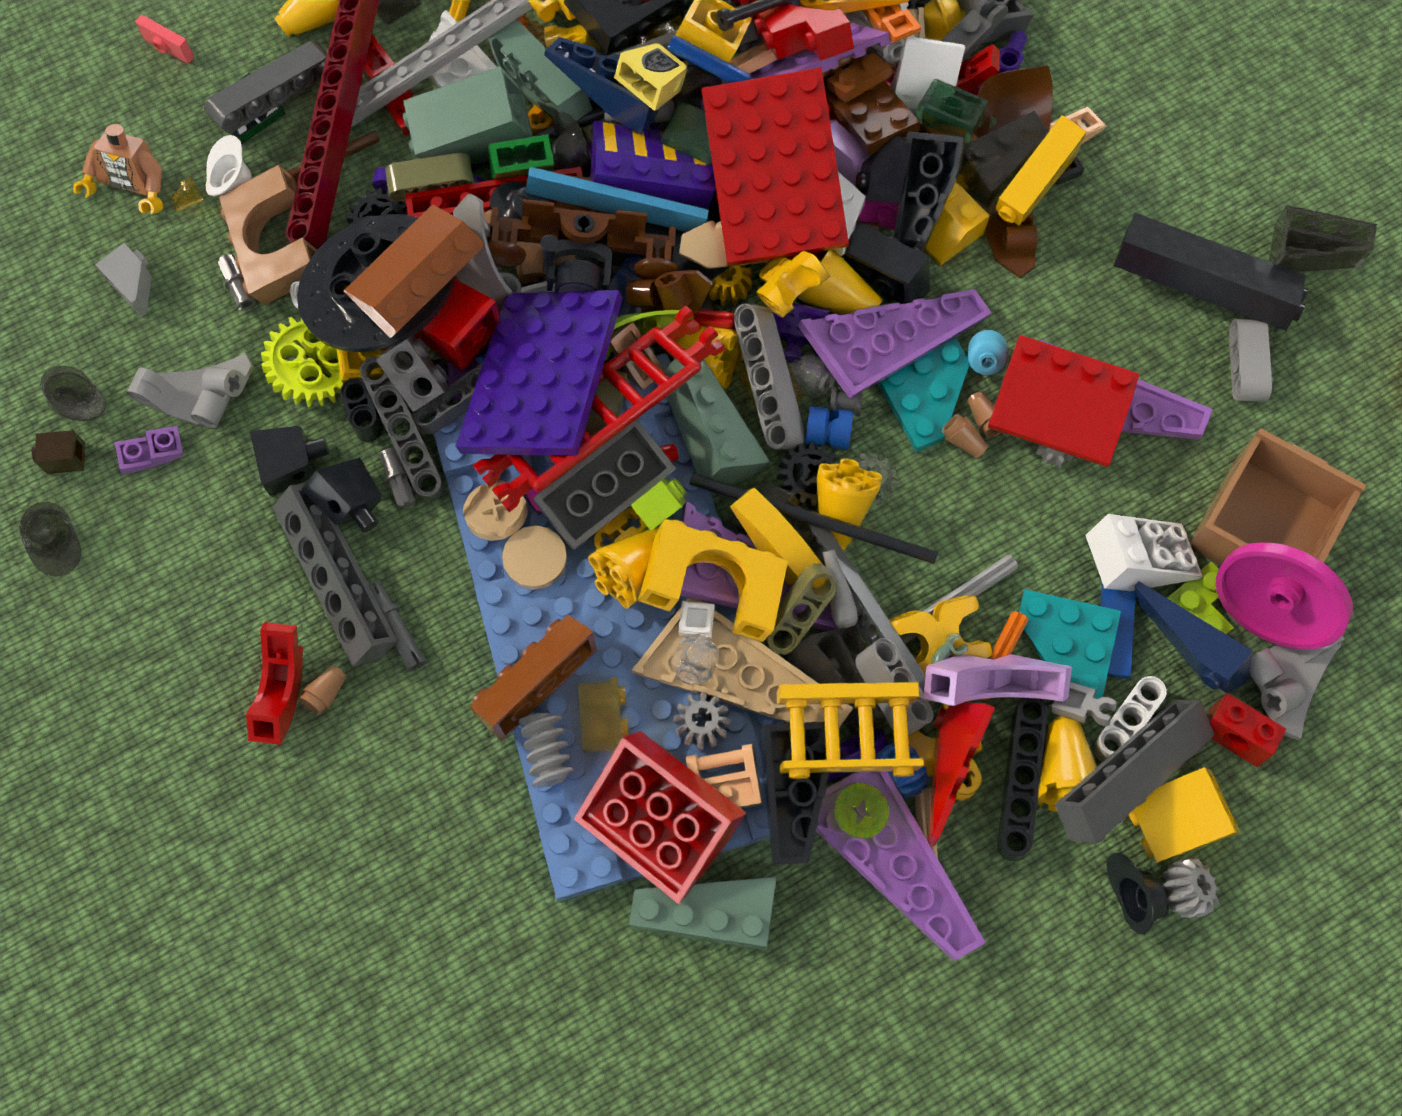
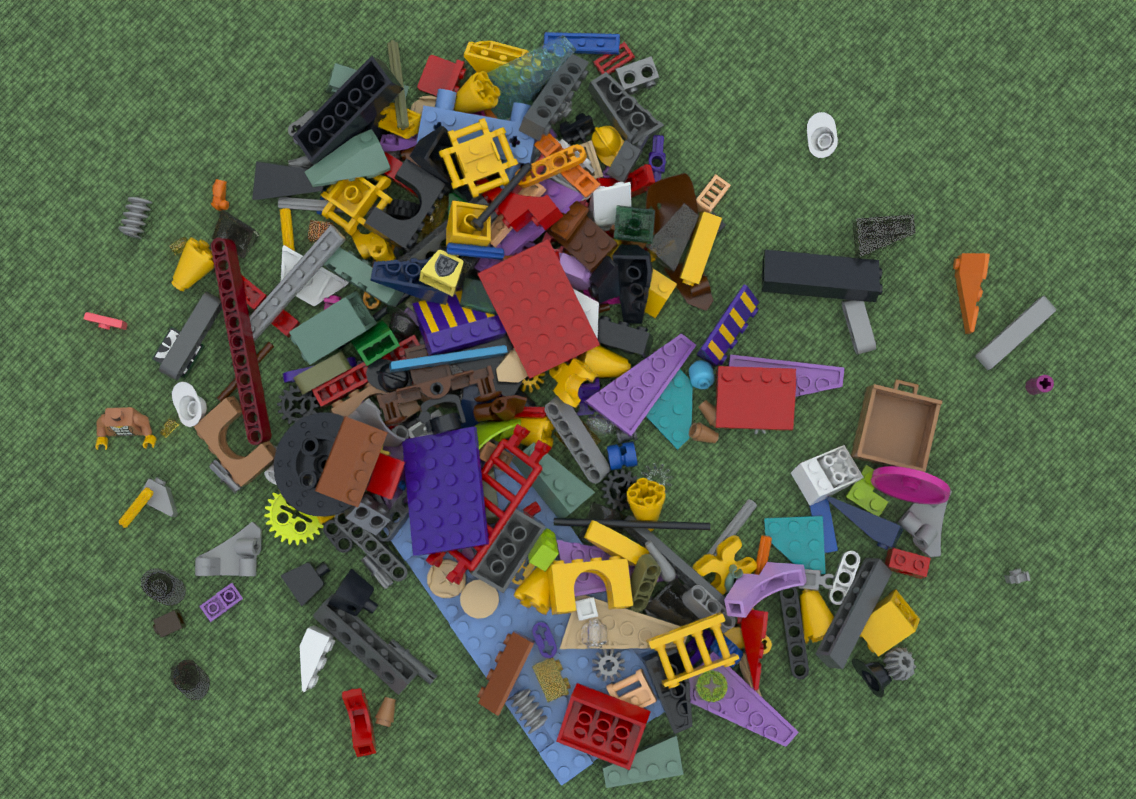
camera: 25 degrees left, 15 degrees up
(87, 274) = (136, 507): none -> yellow axle
(246, 562) = (312, 655): none -> white slope
(606, 652) = (540, 642): none -> dark purple beam
(1051, 288) = (728, 327): none -> dark purple slope
(1261, 94) = (822, 135): none -> white piece

